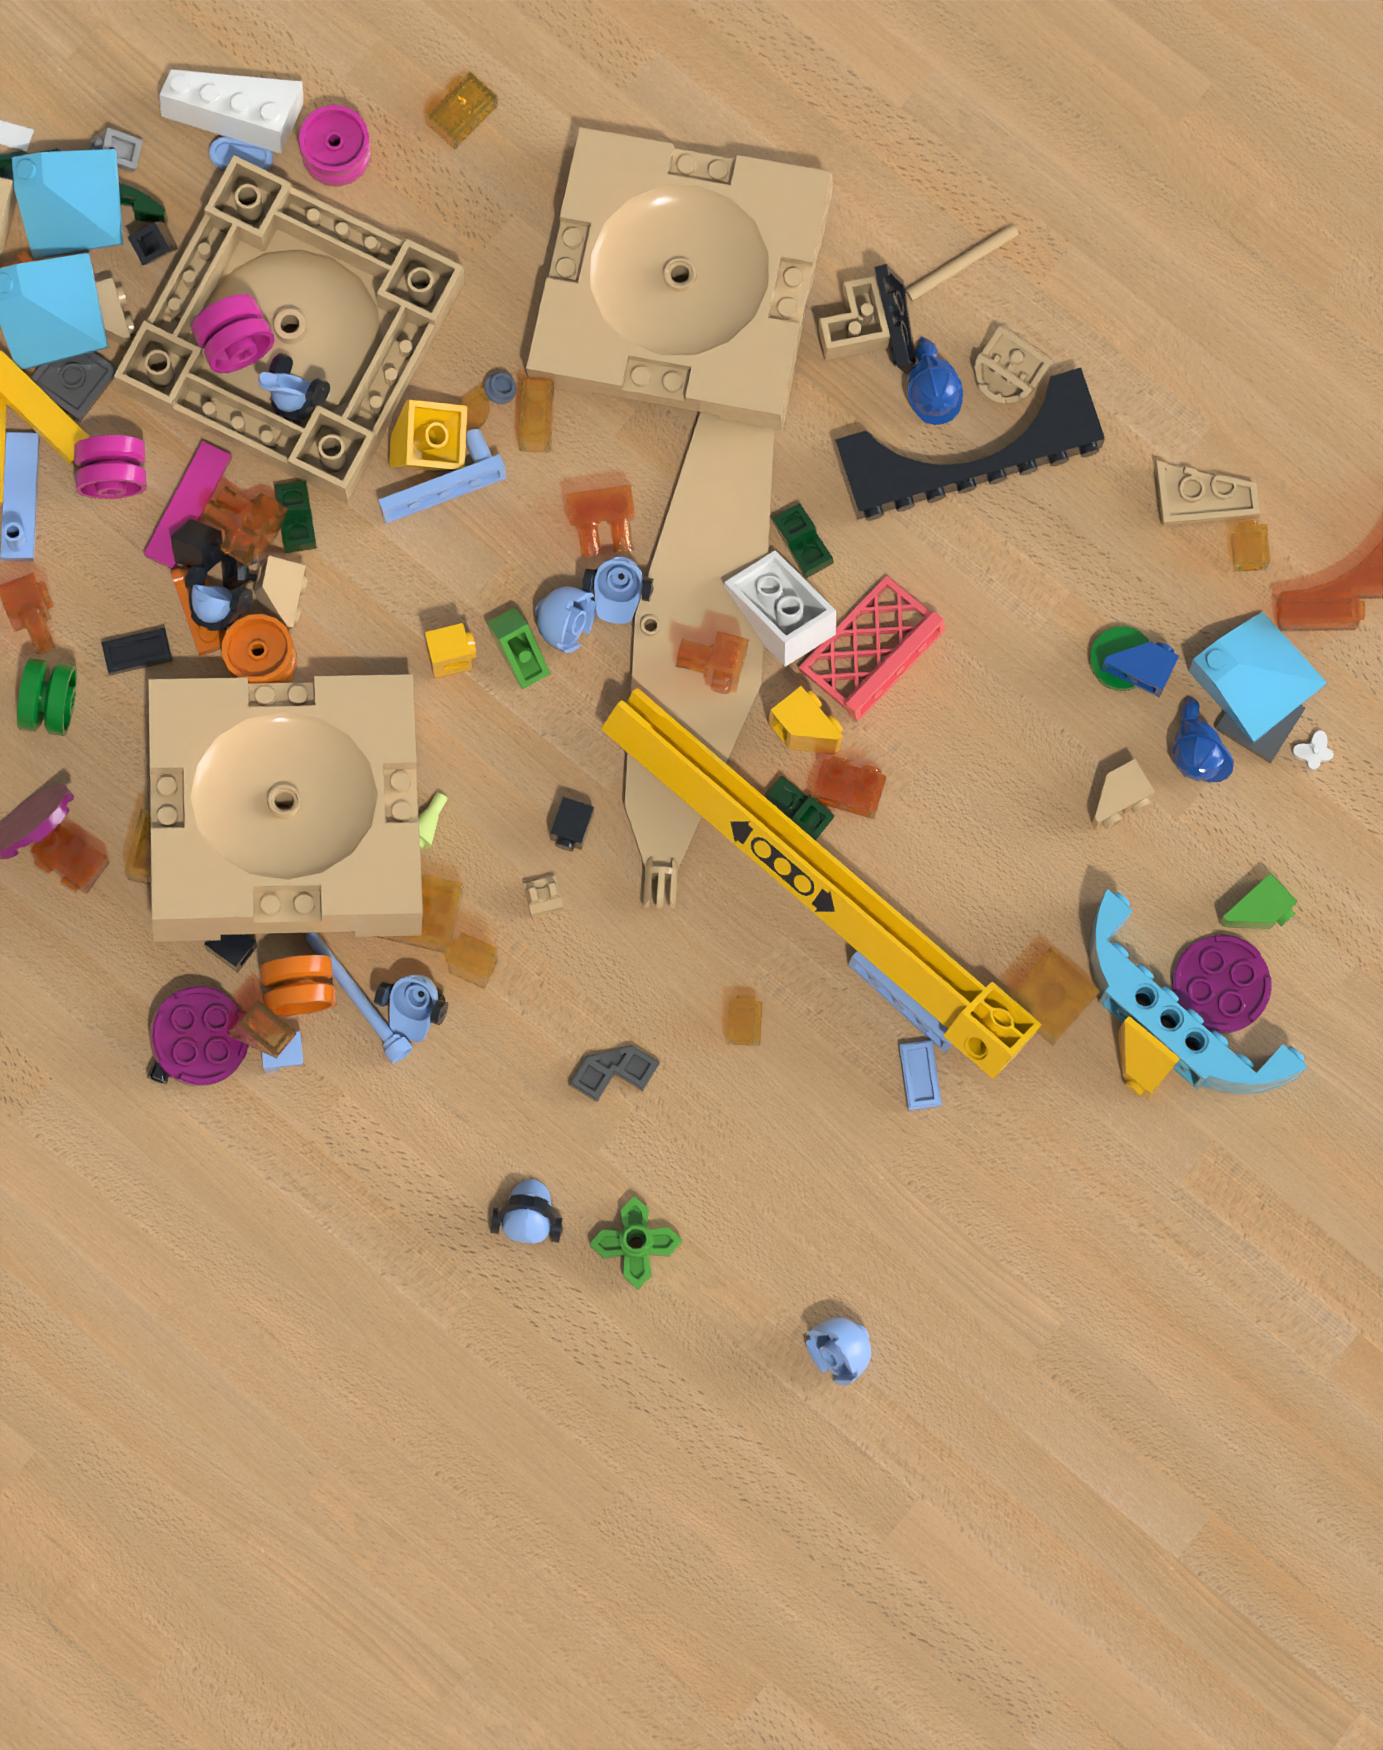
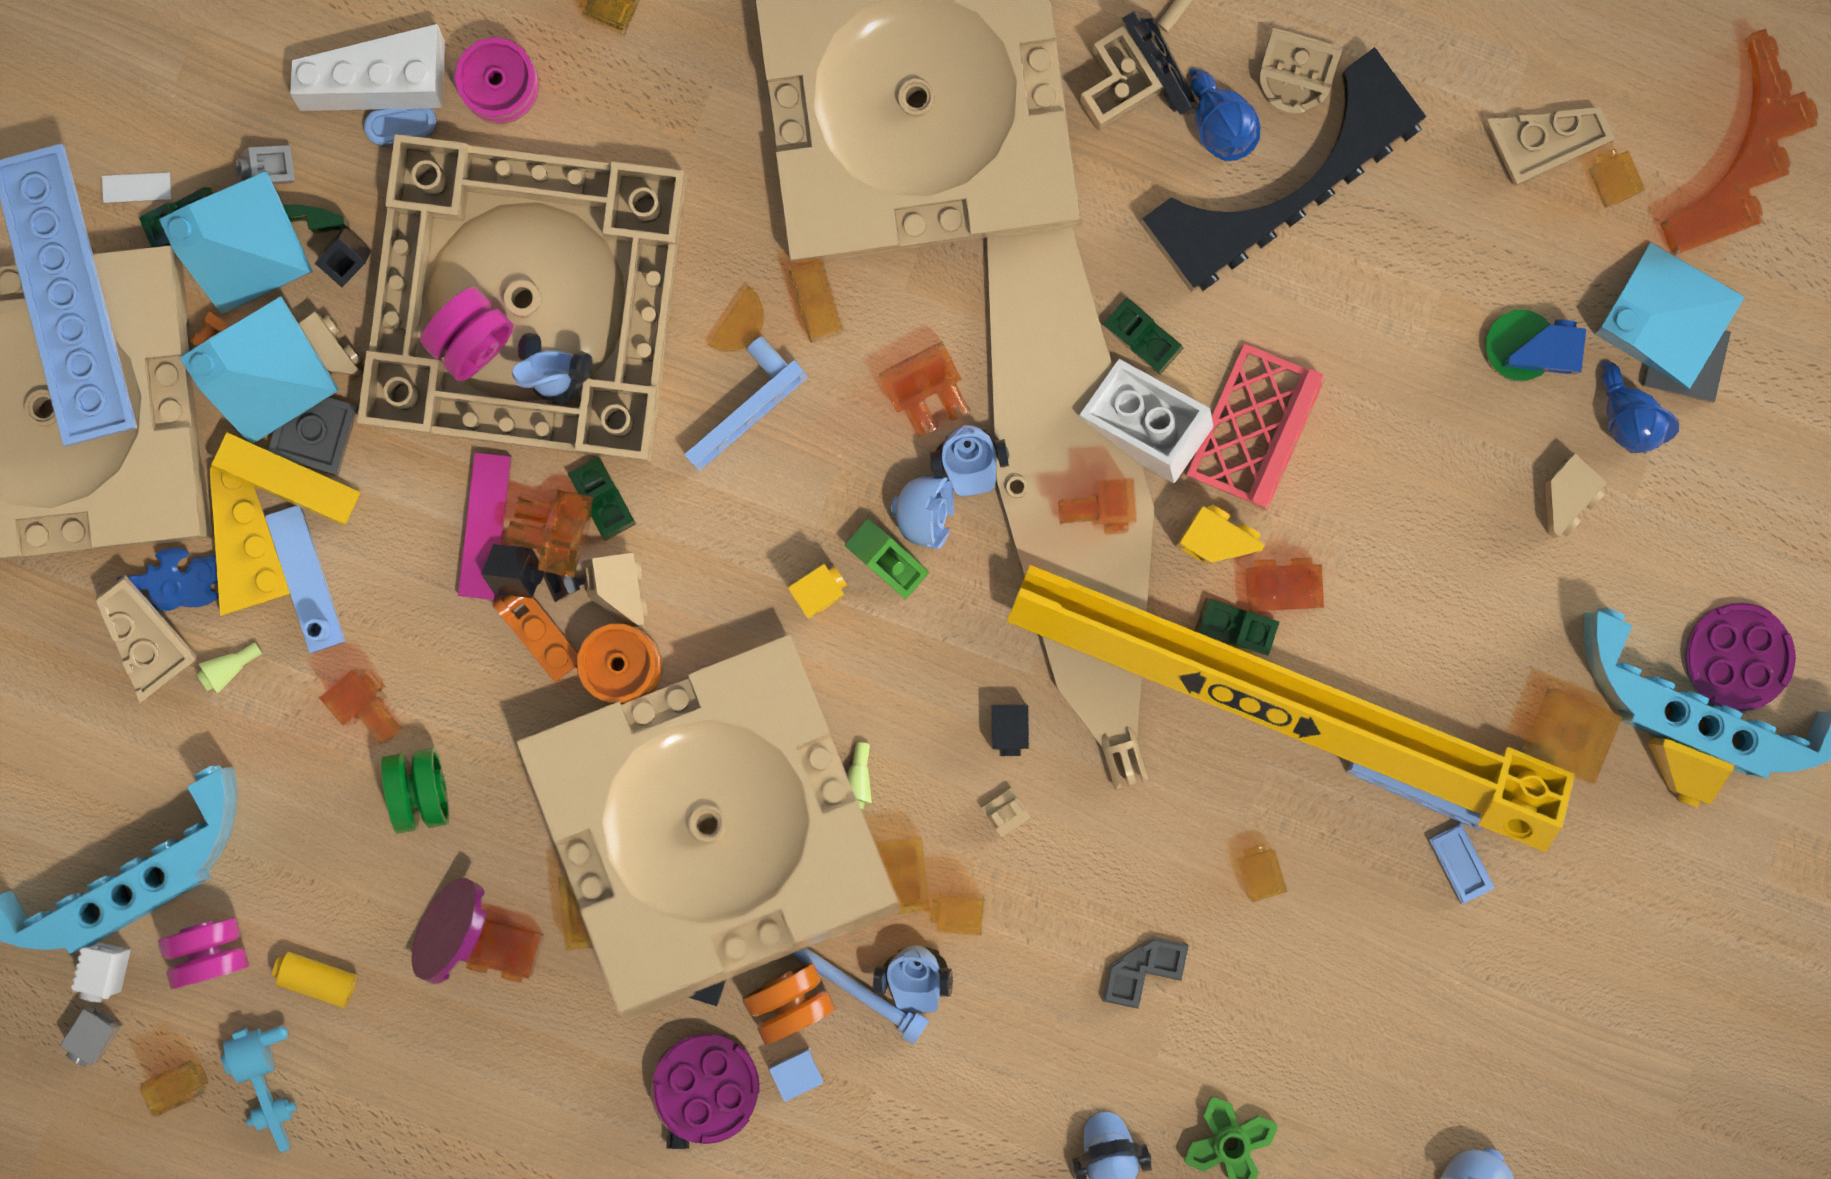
camera: 15 degrees left, 10 degrees up
(110, 467) = (388, 515): dark pink wheel -> none
(137, 651) = (489, 701): black tile -> none
(214, 605) = (556, 628): cap -> none
(262, 1029) = (769, 1065): clear orange slope -> none
(429, 437) = (713, 367): yellow slope -> none
(500, 388) = (767, 283): sand blue plate -> none
(1262, 907) = (1756, 562): bright green slope -> none
(1314, 752) = (1754, 375): white piece -> none

